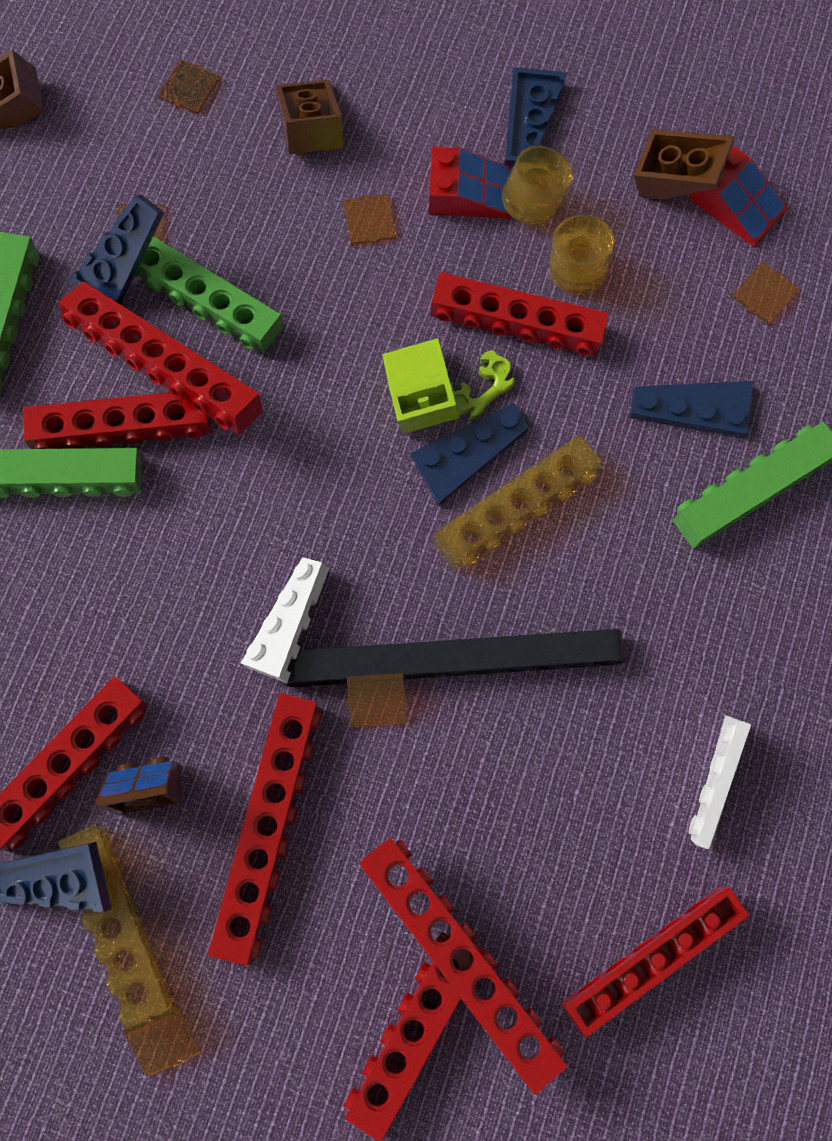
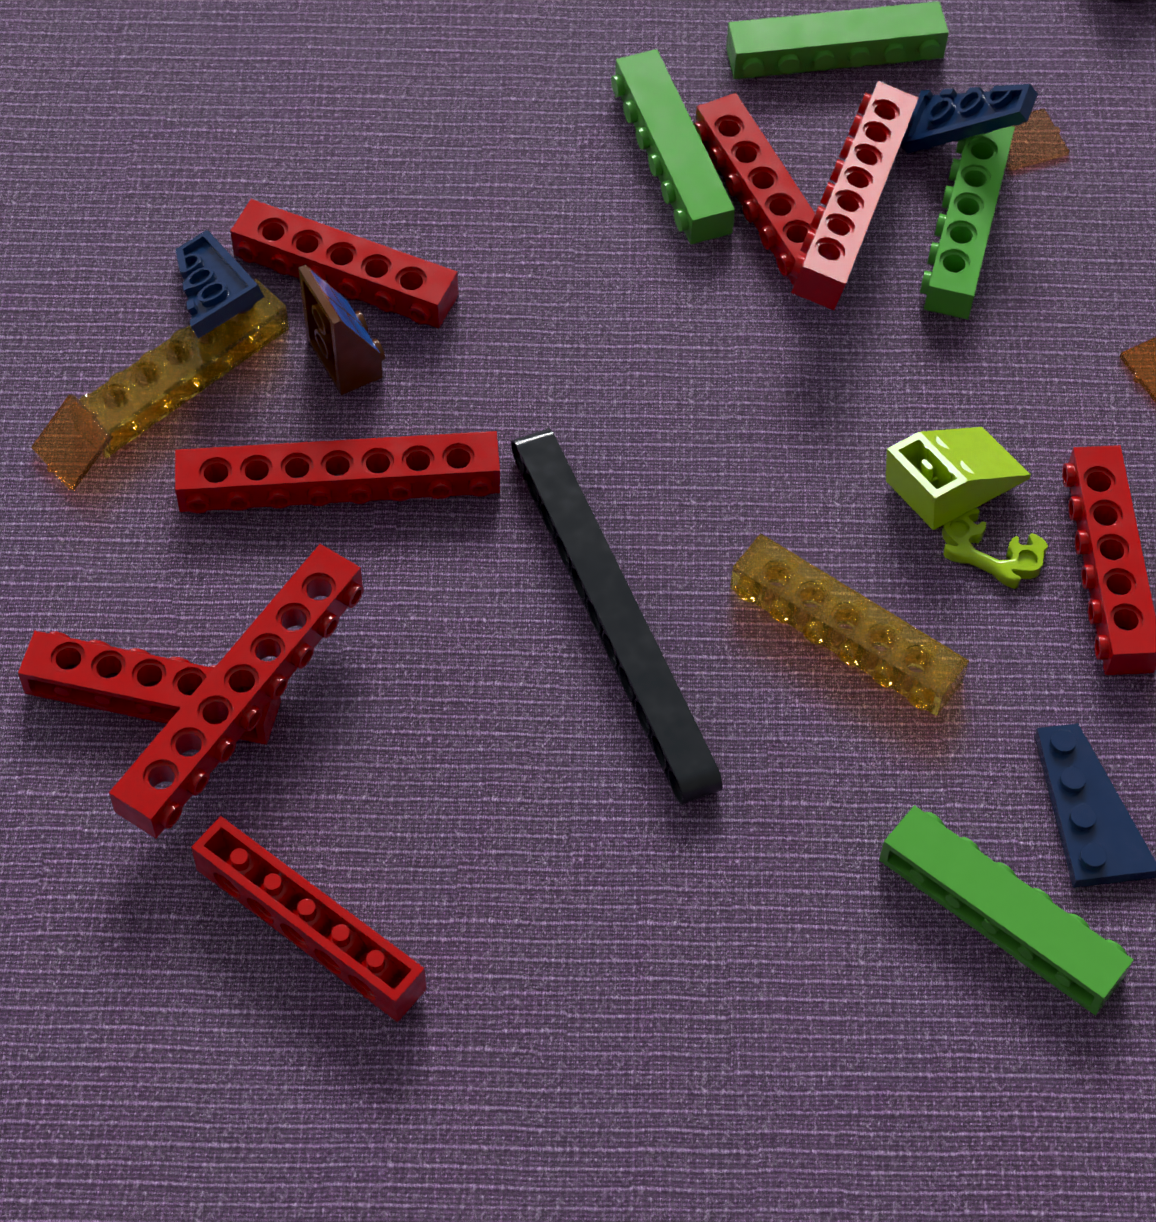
camera: 75 degrees right, 15 degrees down
(281, 629) = (591, 421): white wing -> none
(376, 699) = (527, 539): clear orange piece -> none
(458, 456) = (881, 545): dark blue wing -> none
(722, 770) = (567, 942): white wing -> none

